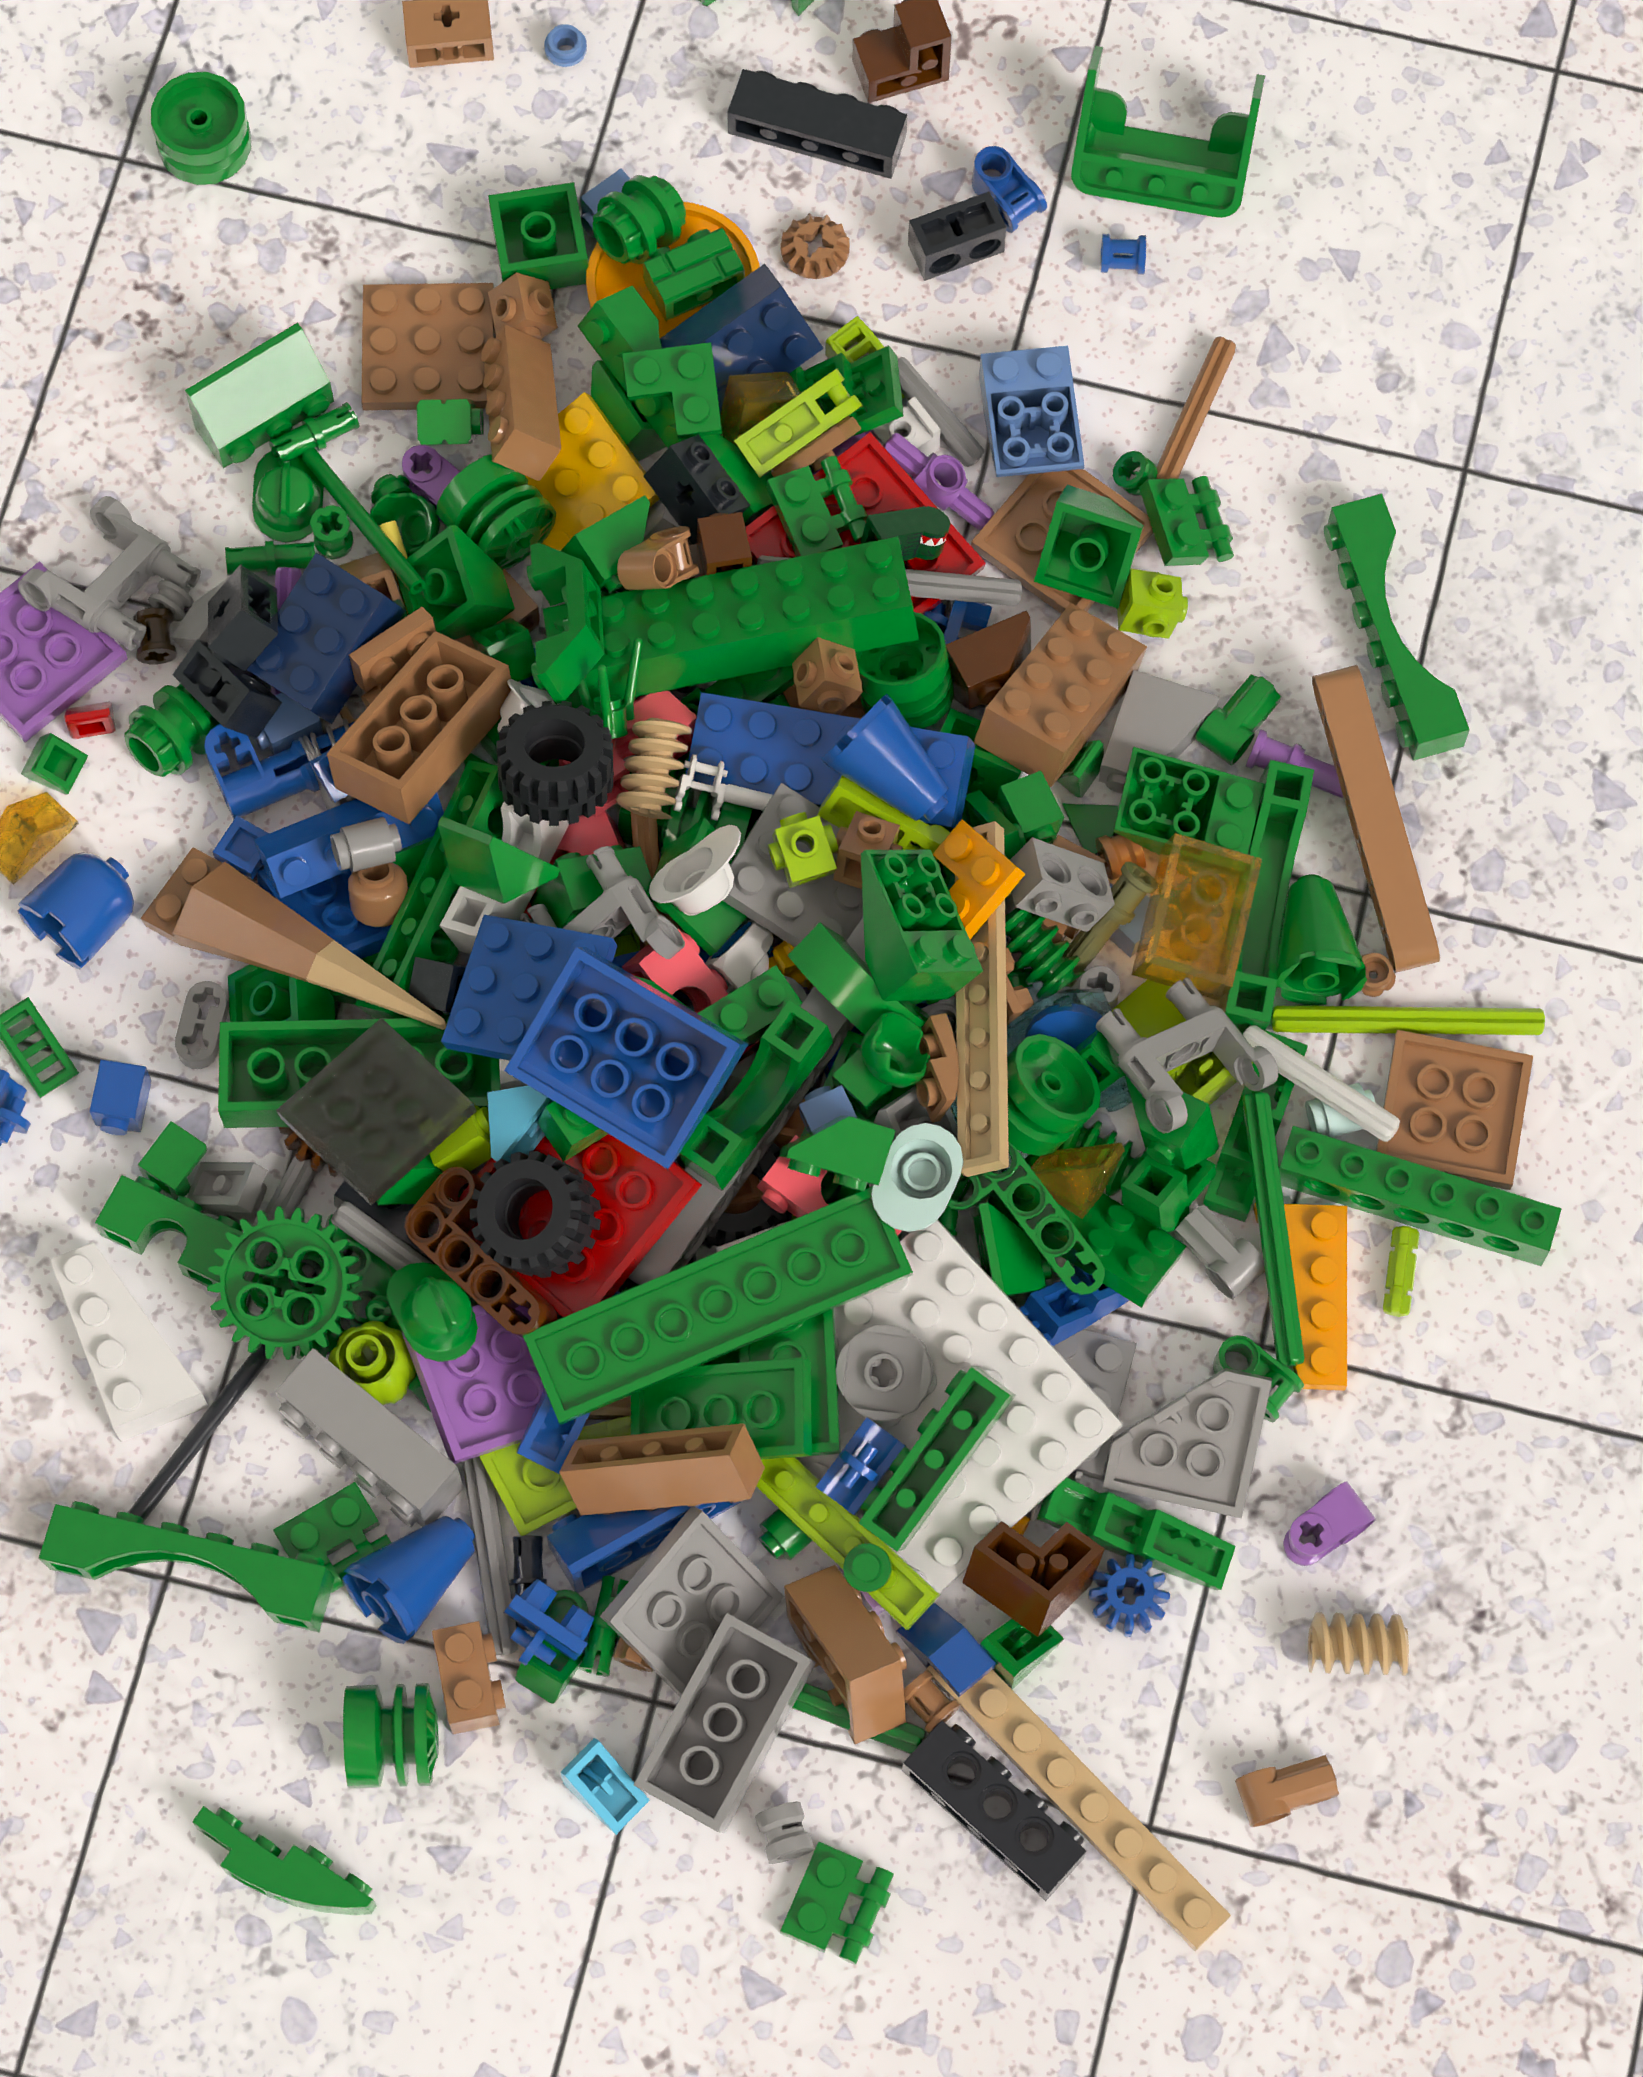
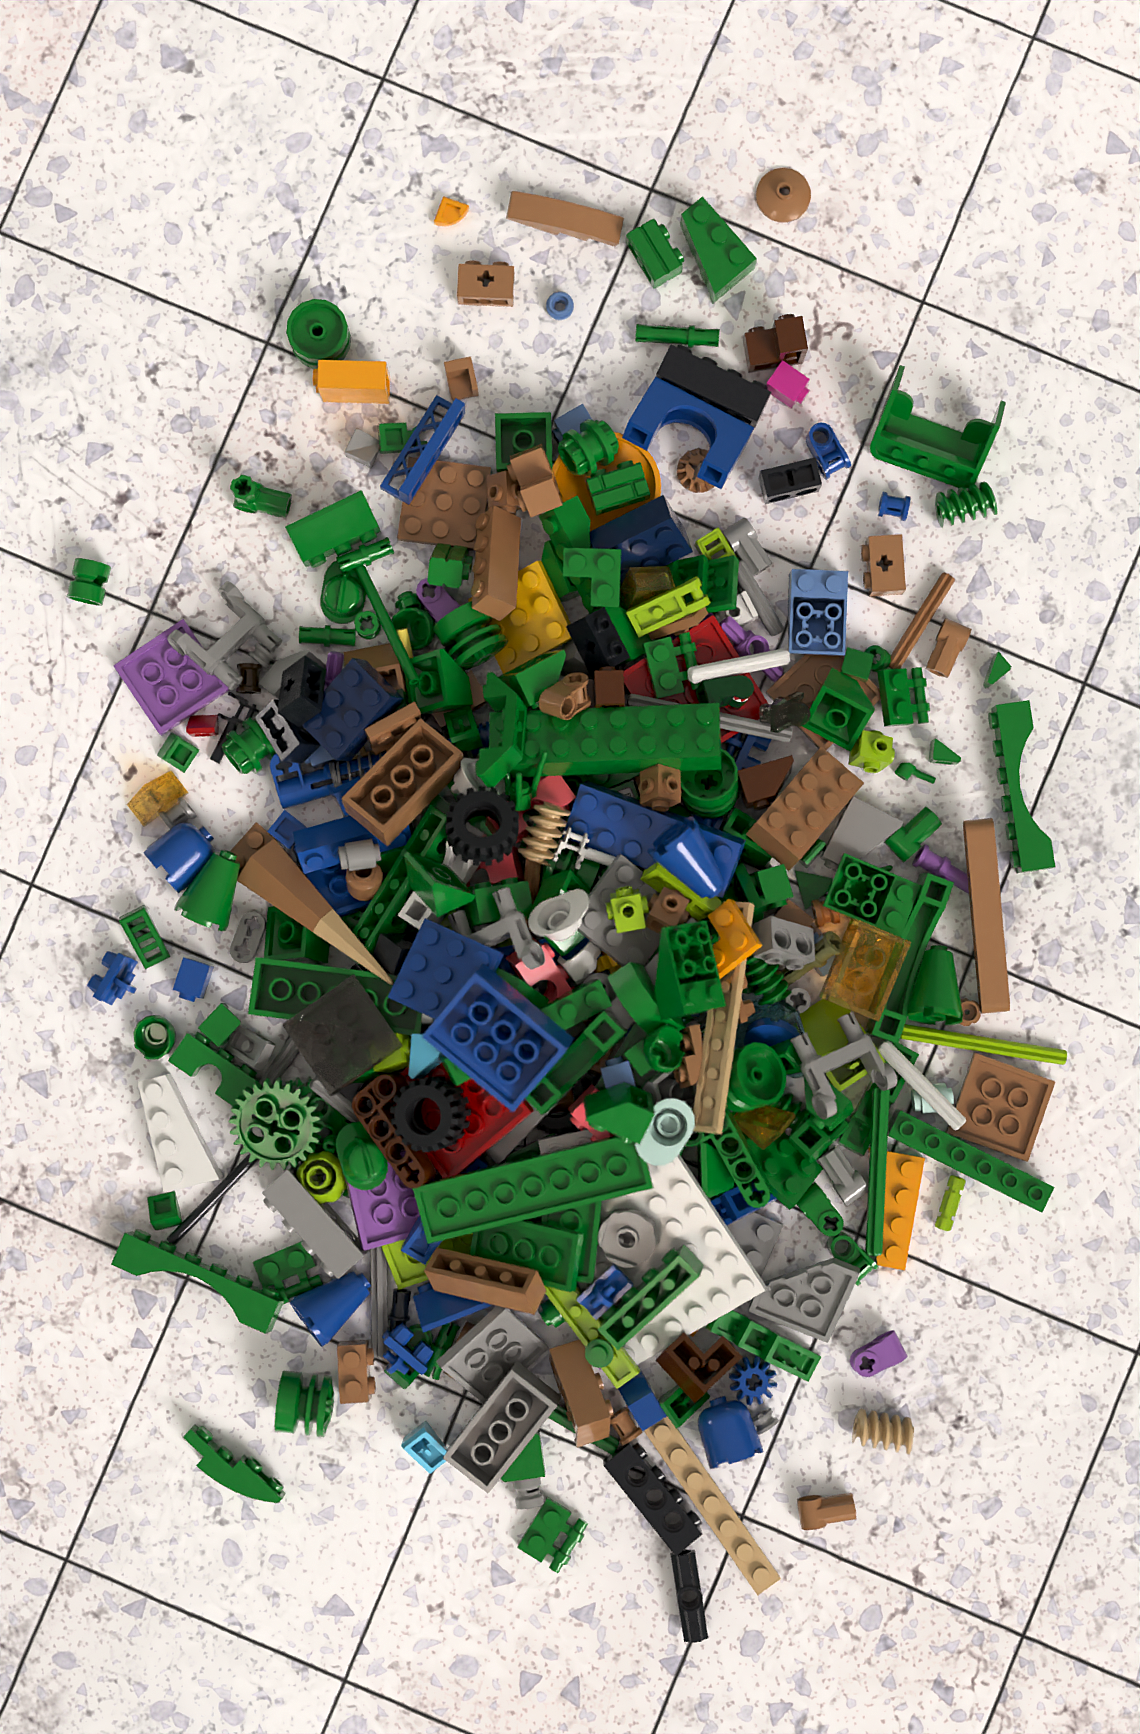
camera: 10 degrees right, 15 degrees up
(68, 844) = (178, 813): none -> light grey bush
(68, 1194) = (154, 1037): none -> green hair
(116, 1473) = (164, 1210): none -> green slope
(120, 752) = (232, 724): none -> black piece
(129, 373) = (254, 497): none -> green piece
(136, 951) = (211, 891): none -> green cone
(262, 184) = (352, 381): none -> light orange brick
(290, 283) = (362, 448): none -> light grey slope
(341, 262) = (394, 437): none -> green plate
(392, 272) = (428, 452): none -> blue fence
(429, 164) = (461, 378): none -> medium nougat panel
(565, 273) = (536, 480): none -> medium nougat brick
(753, 157) = (667, 405): none -> blue arch
(768, 59) = (677, 335): none -> green pin
(775, 1781) = (528, 1463): none -> green slope
(902, 331) = (744, 543): none -> light grey piece
(923, 495) = (739, 665): none -> white axle
(932, 106) = (788, 385): none -> dark pink brick
(1005, 555) = (785, 712): none -> clear smoke hips
(1092, 1994) = (691, 1613): none -> black piece
(1102, 1681) = (728, 1432): none -> blue cylinder
(1106, 479) = (857, 664): none -> green slope
(1123, 315) = (890, 550): none -> medium nougat brick
(1158, 1660) = (764, 1421): none -> light grey bush
(1186, 1306) = (816, 1207): none -> green piece
(1214, 627) = (907, 769): none -> green hand
(1231, 231) = (965, 503): none -> green piece
(1244, 435) = (950, 641): none -> medium nougat piece
(1264, 596) = (942, 754): none -> green slope
(1326, 465) = (997, 669): none -> green slope

